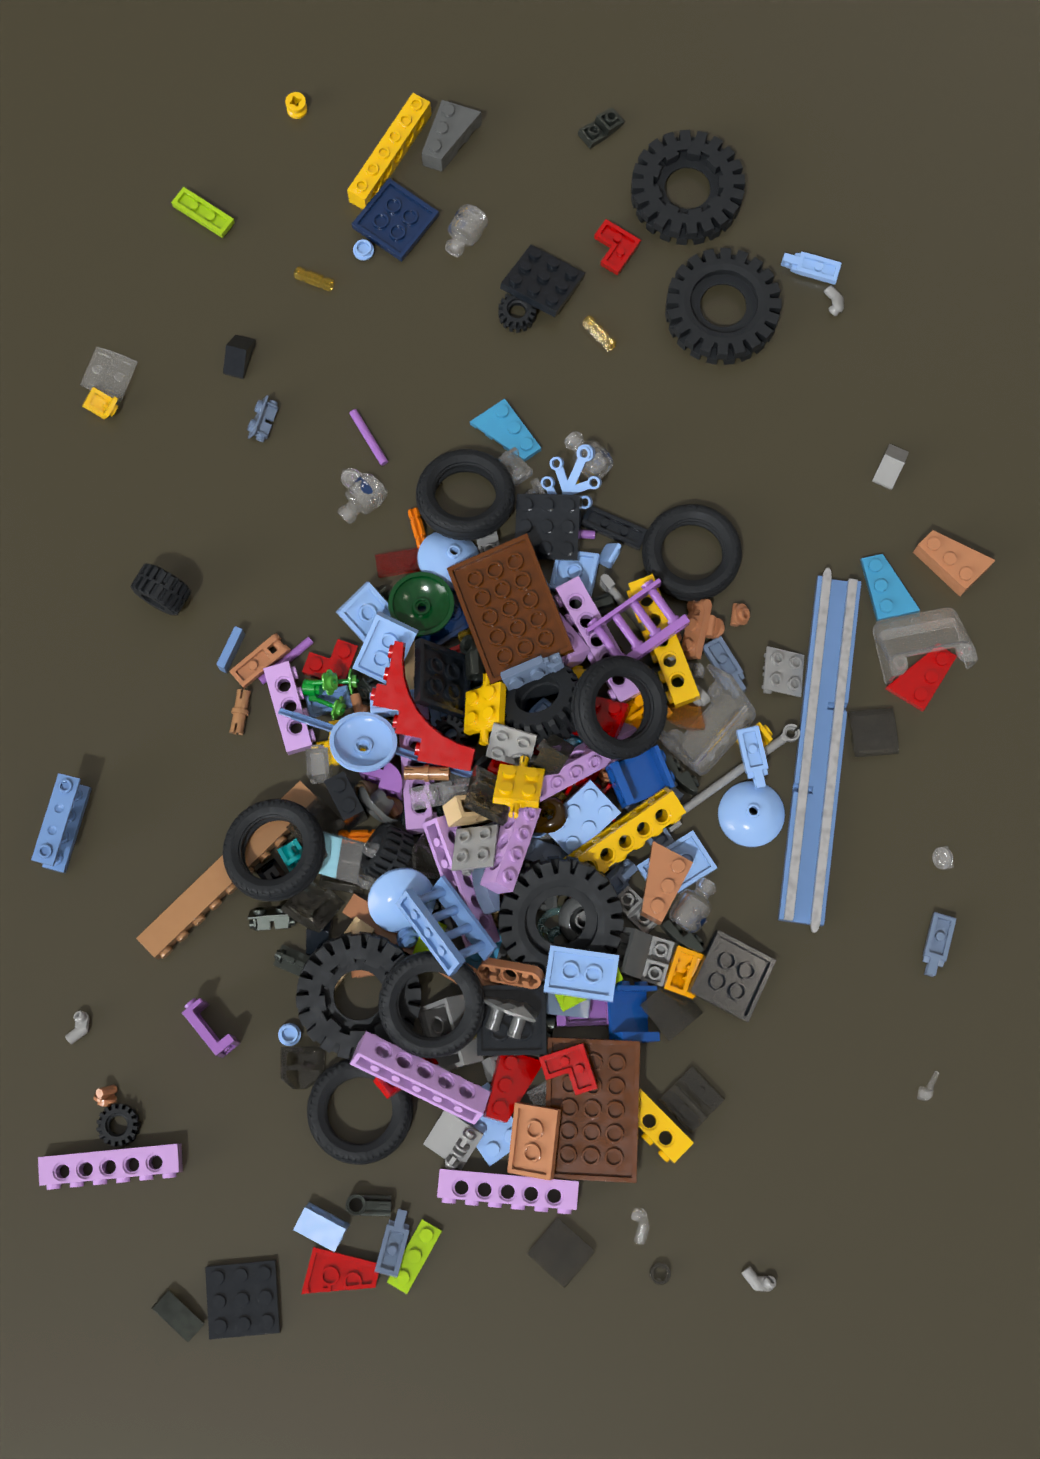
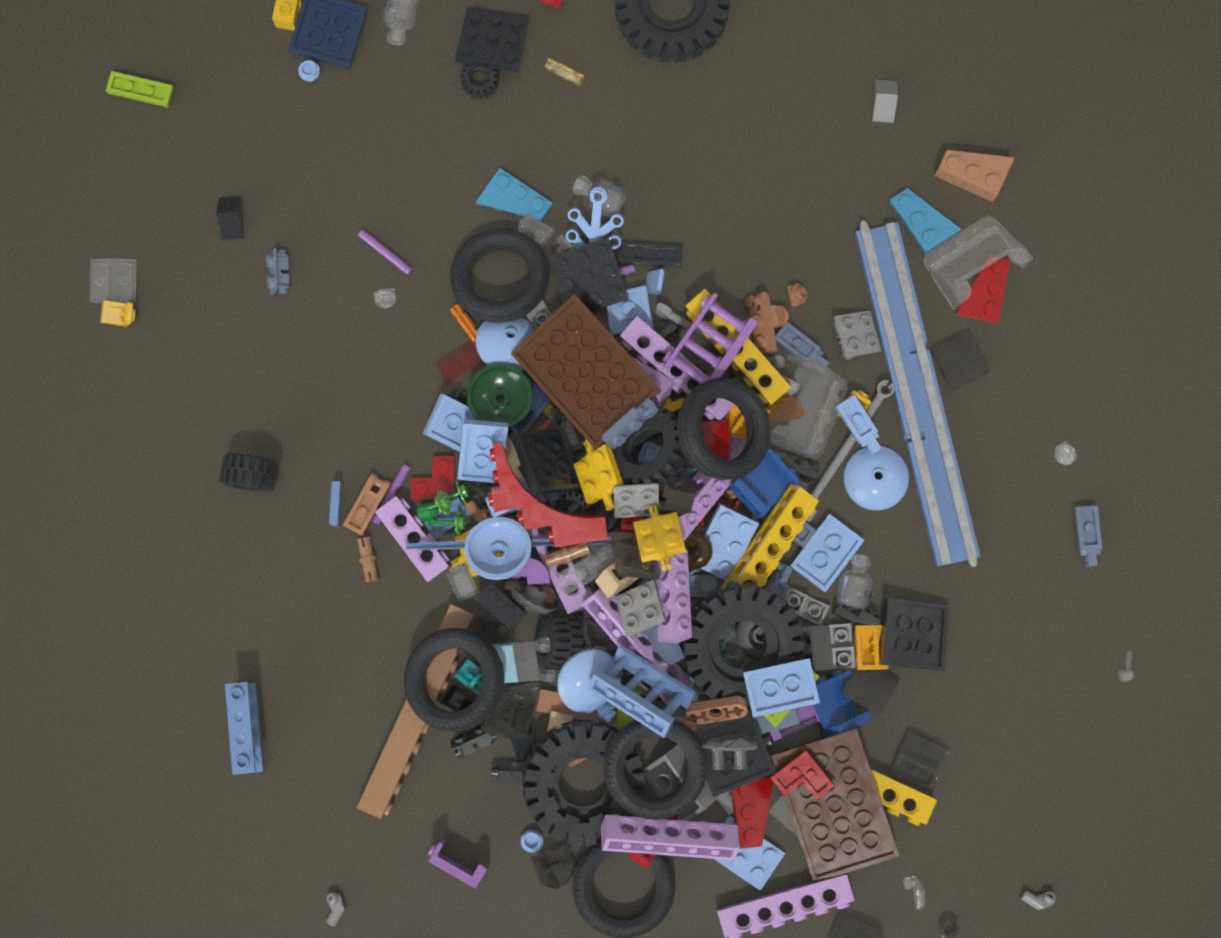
camera: 20 degrees left, 5 degrees up
(313, 278) = (272, 116): clear yellow axle -> none
(359, 835) = (522, 634): orange axle -> none
(363, 496) = (404, 311): clear piece -> none
(453, 1140) = (719, 880): light grey hinge -> none
(534, 1141) = (793, 853): nougat plate -> none
(663, 880) = (821, 573): nougat wedge -> none
(699, 516) = (742, 216): black tyre -> none

